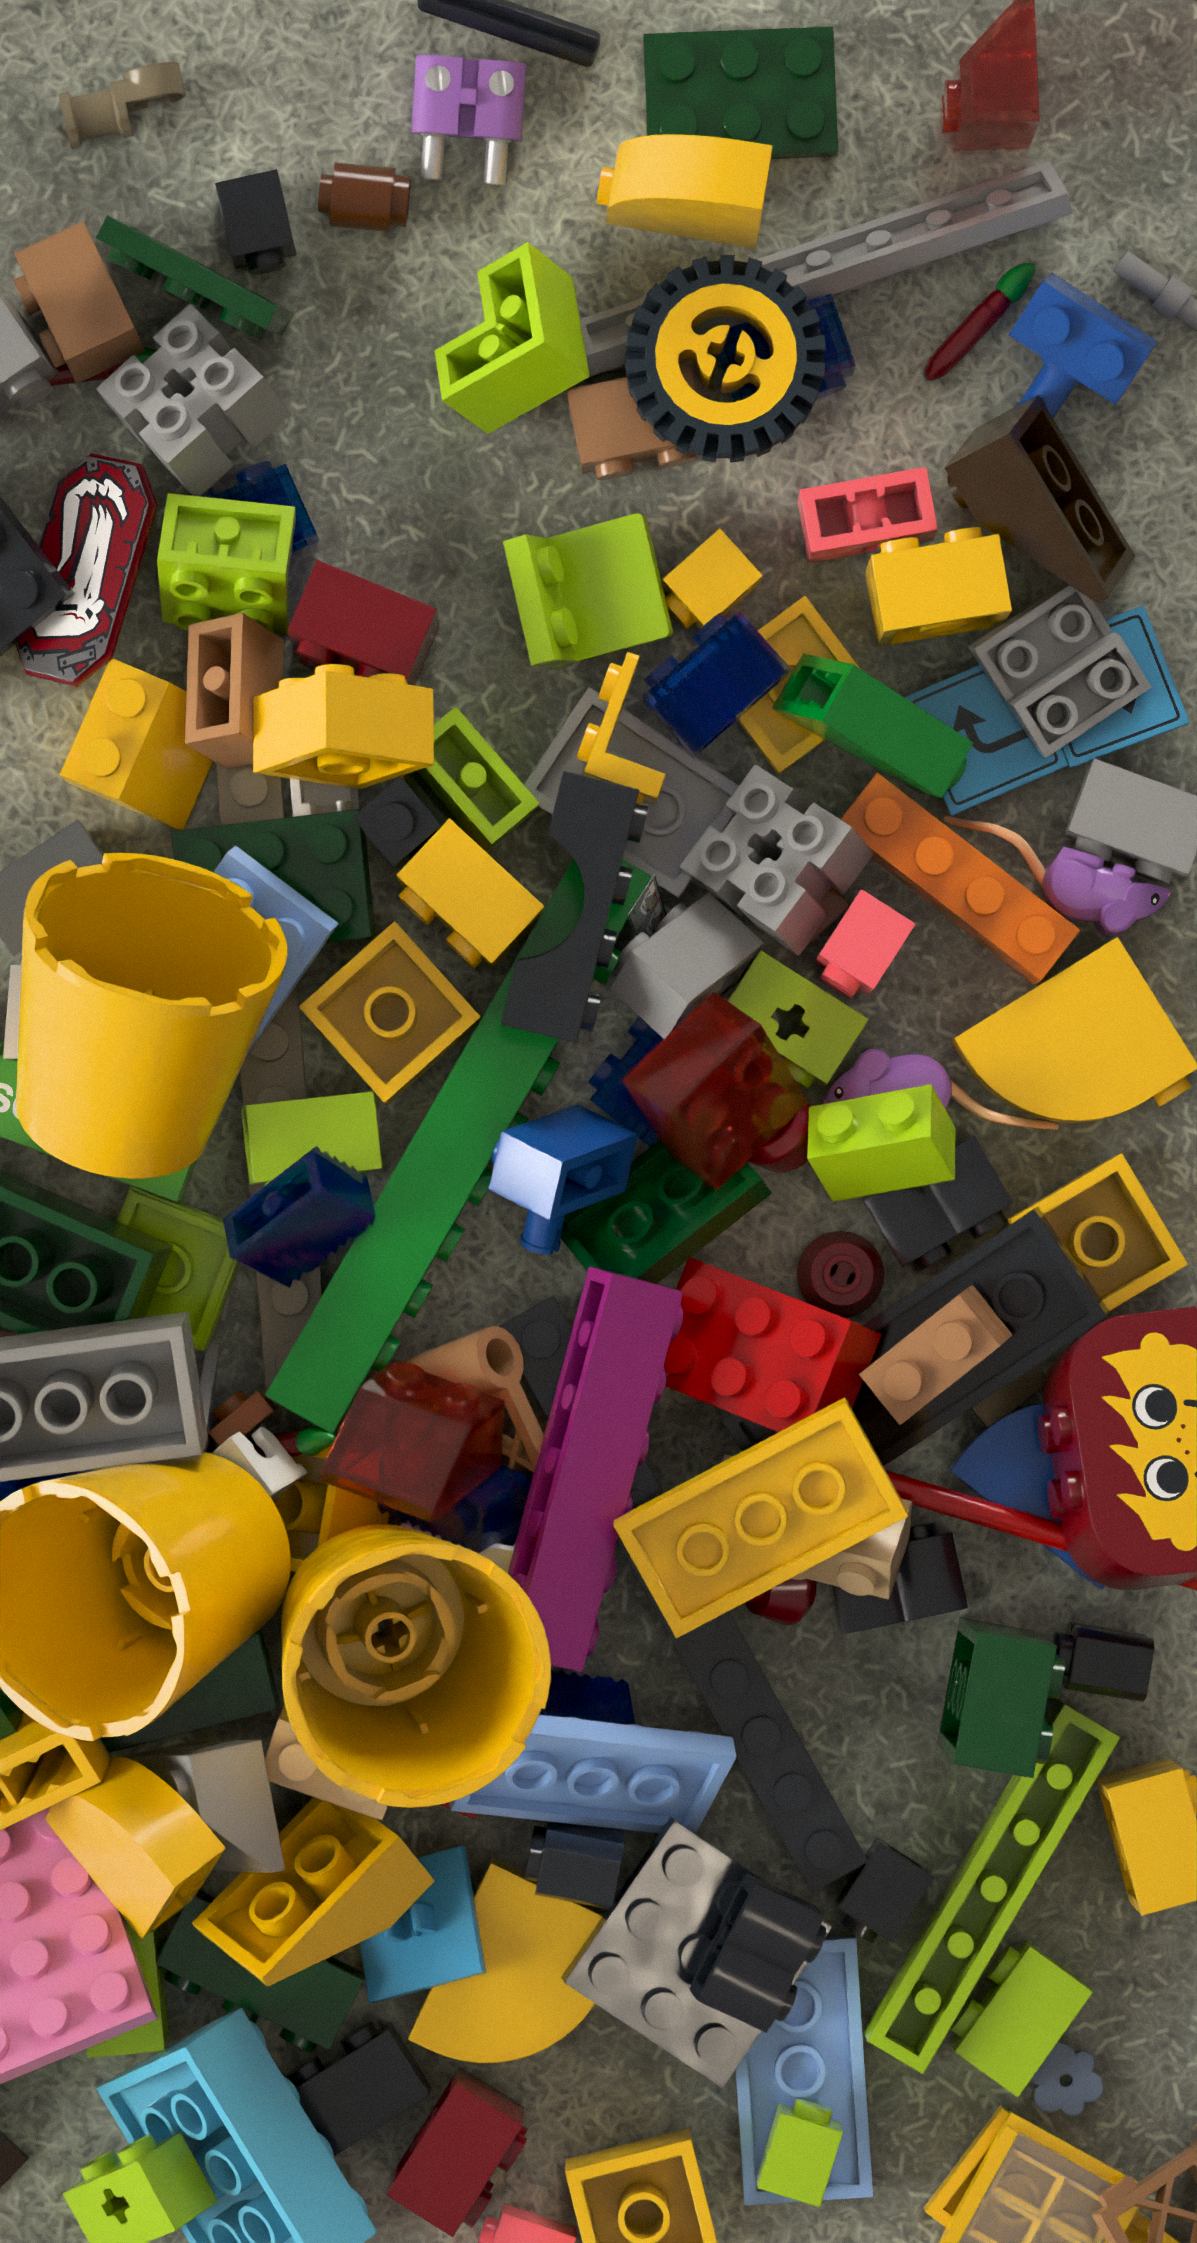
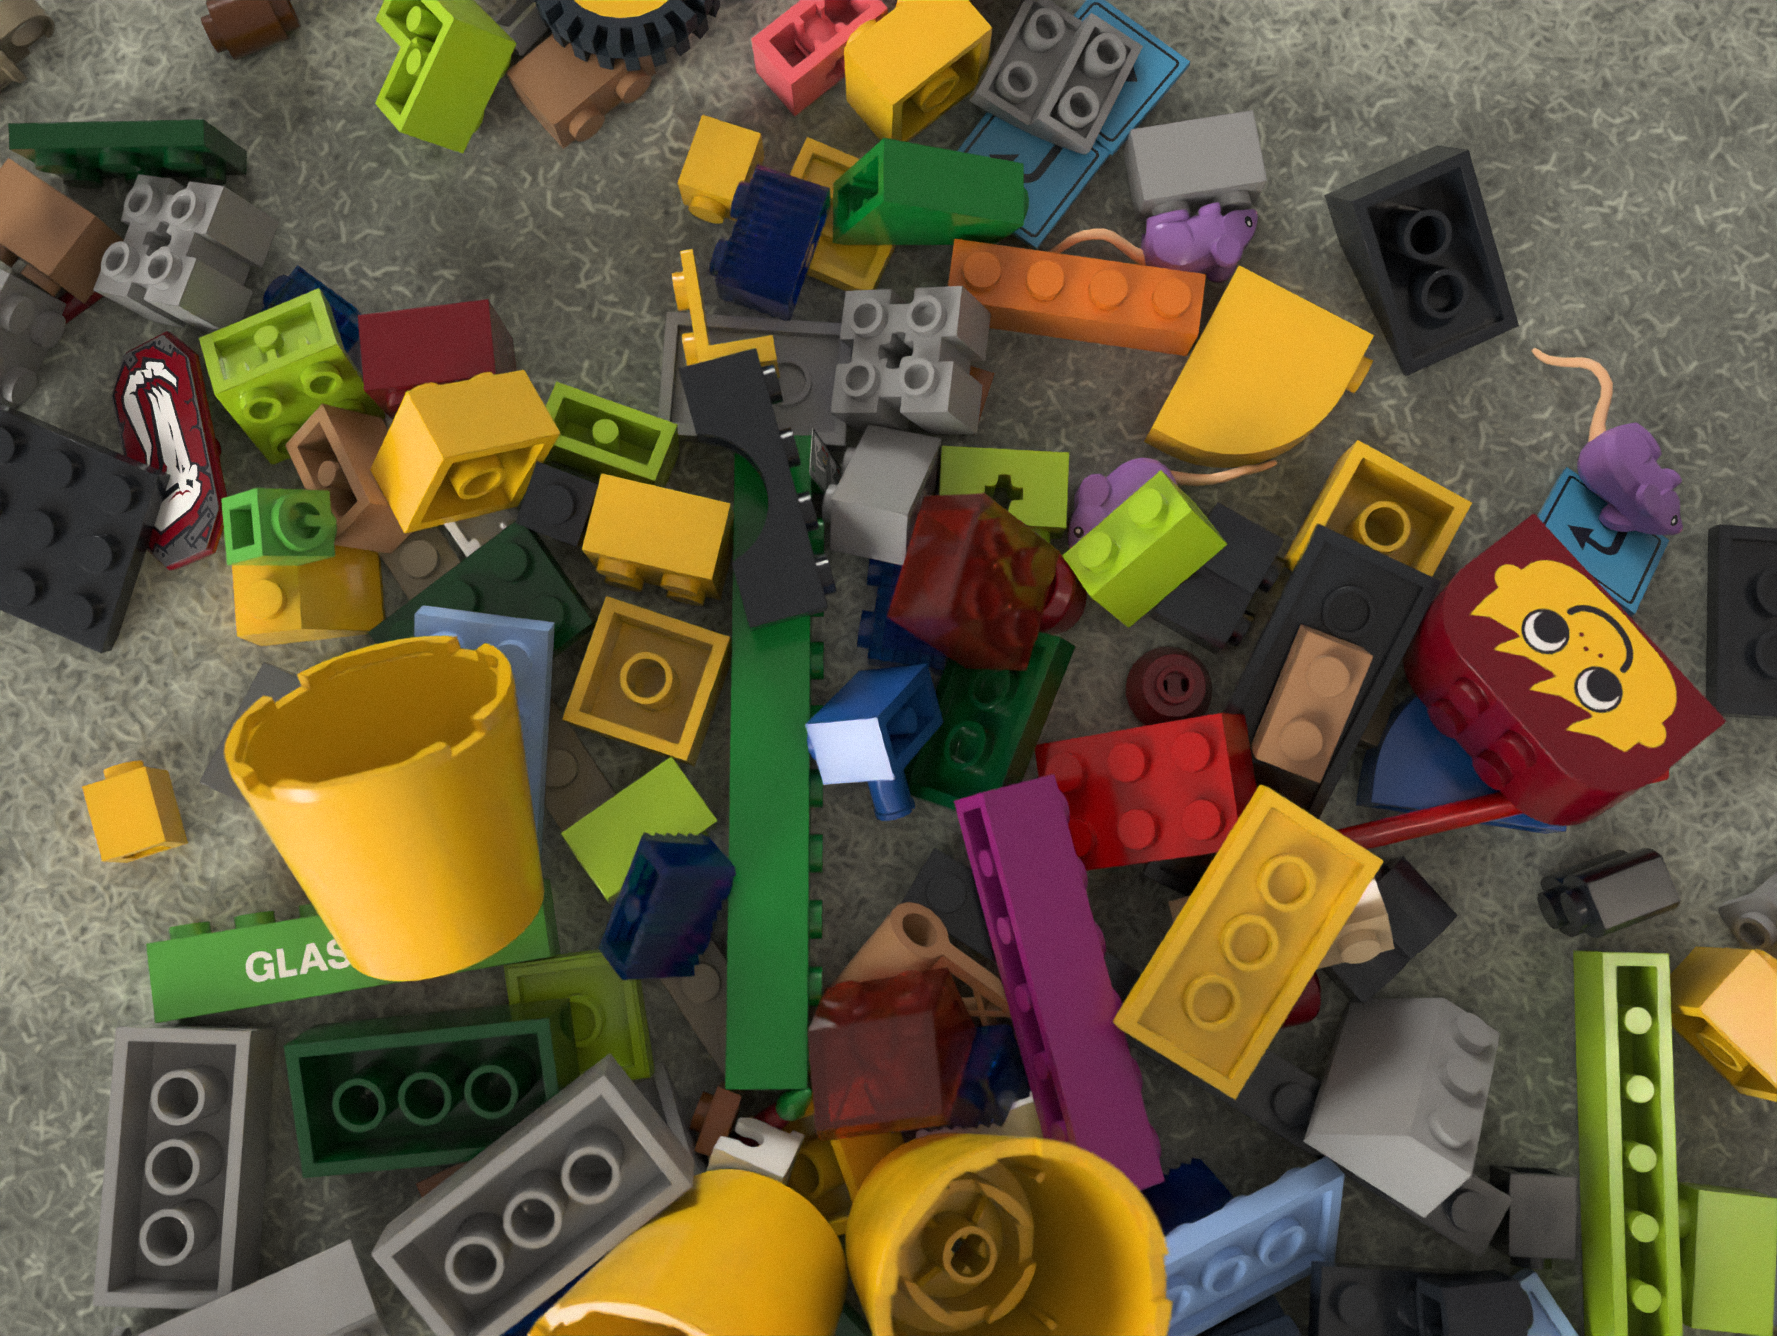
camera: 30 degrees left, 5 degrees down
(162, 717) = (278, 527): none -> bright green brick
(256, 222) = (164, 80): black brick -> none
(588, 591) = (621, 231): lime bracket -> none
(826, 1722) = (1406, 1096): none -> light grey slope
(862, 946) = (1028, 390): coral brick -> none
(999, 1698) = (1560, 983): dark green brick -> none

